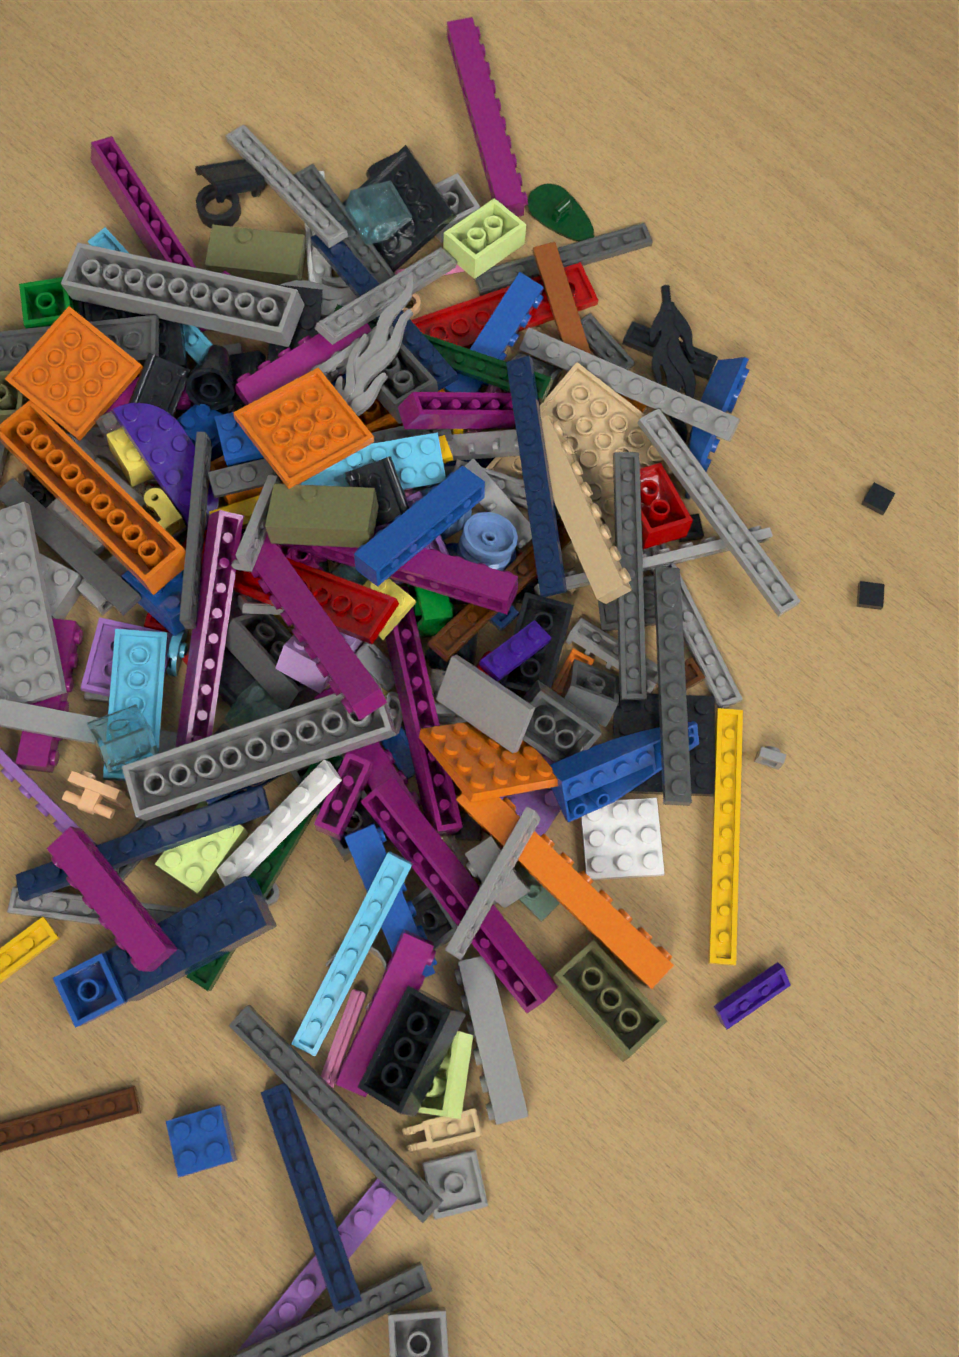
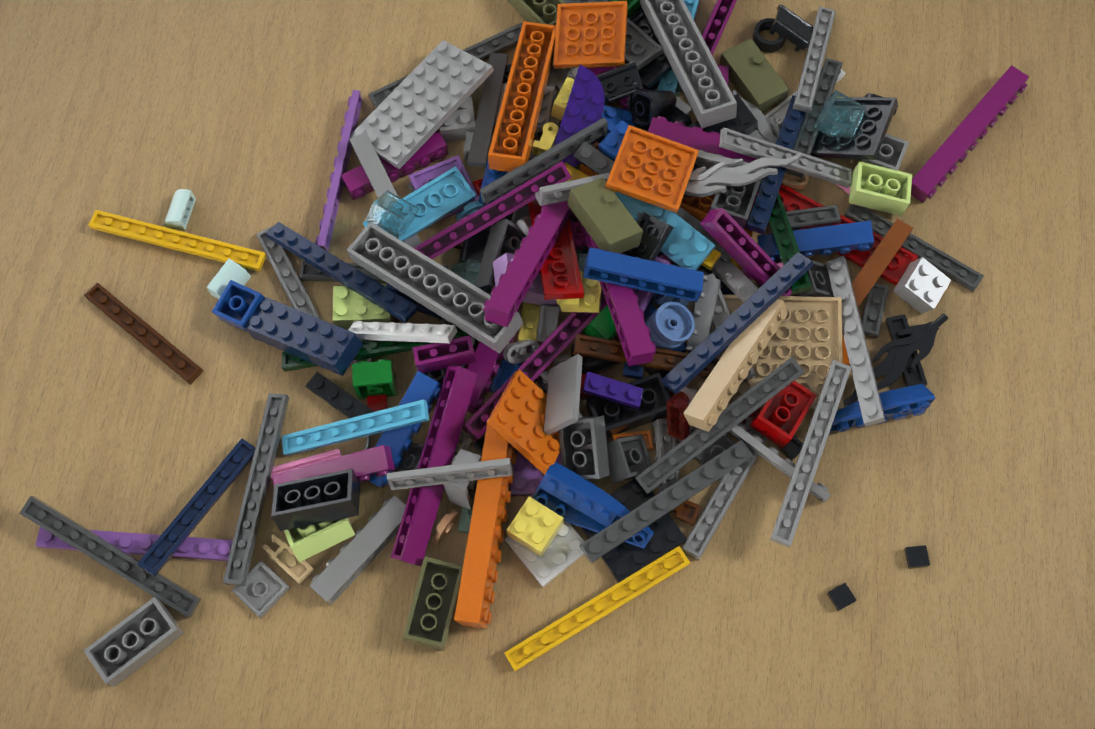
camera: 60 degrees right, 5 degrees down
(39, 976) = (228, 272): none -> light aqua brick
(93, 793) = (352, 224): light nougat plate -> none
(111, 899) = (293, 275): magenta brick -> none
(201, 1141) = (193, 425): blue brick -> none
(294, 949) = (336, 396): none -> black plate
(305, 893) = (374, 378): none -> green brick
(332, 912) = (377, 402): none -> red tile
(466, 319) = (814, 217): none -> dark grey tile
(528, 930) = (445, 526): none -> light nougat plate
(559, 212) = (944, 222): dark green shield -> none
(587, 607) = (676, 422): none -> clear red brick
(602, 836) = (535, 526): none -> light yellow brick
(616, 282) = (922, 285): none -> brick
(752, 995) = (501, 695): dark purple plate -> none
(770, 757) = (672, 602): light grey plate -> none

